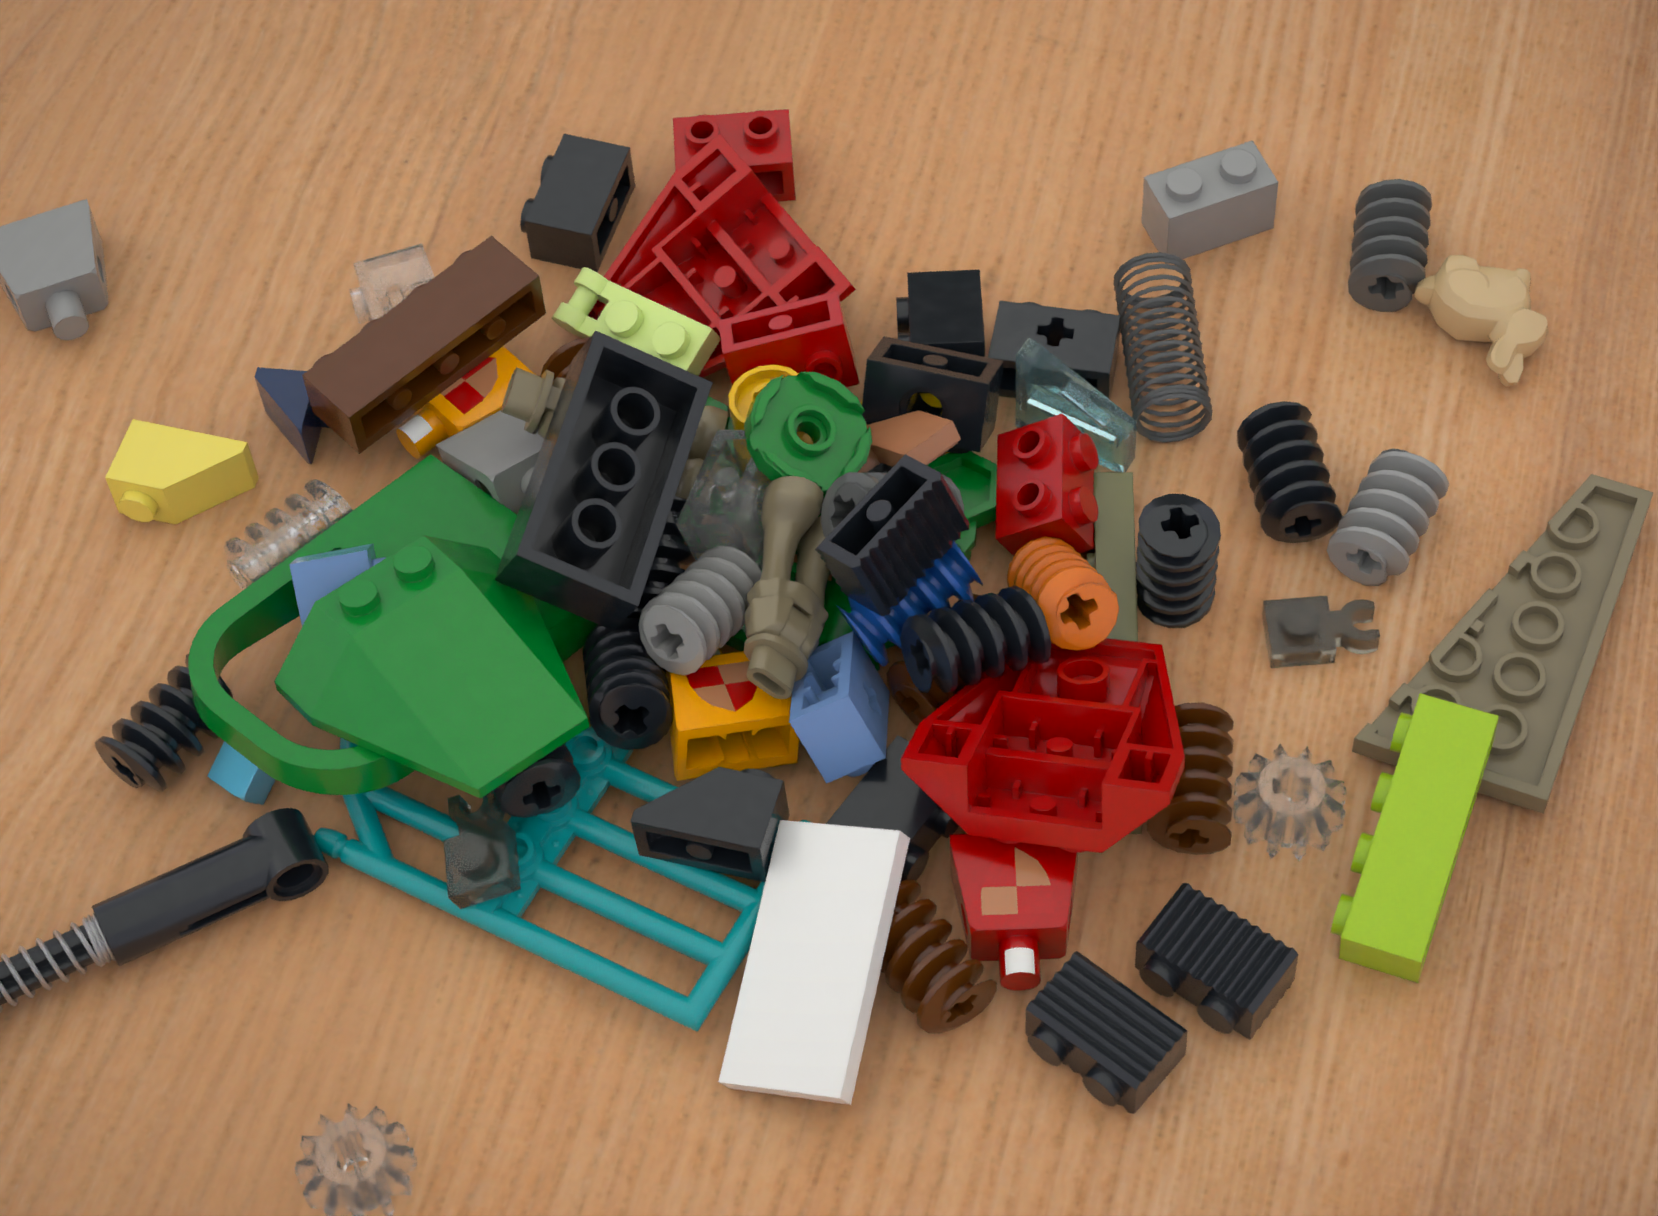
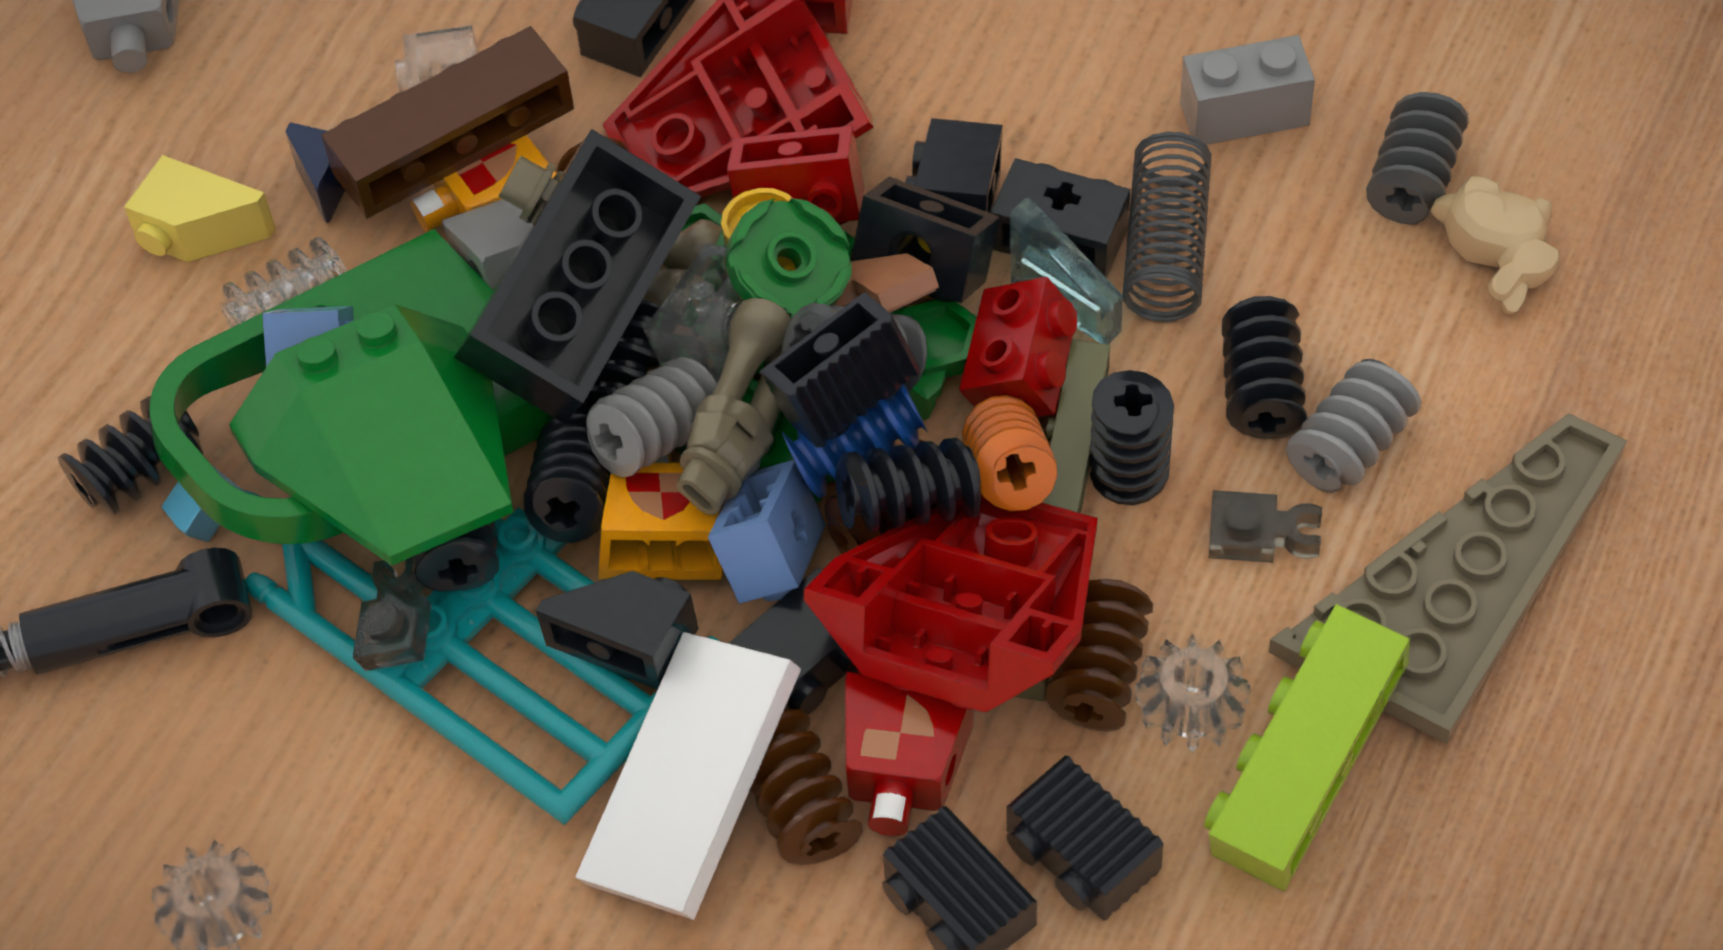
camera: 10 degrees right, 0 degrees up
(636, 322) = (660, 135): yellowish green plate -> none

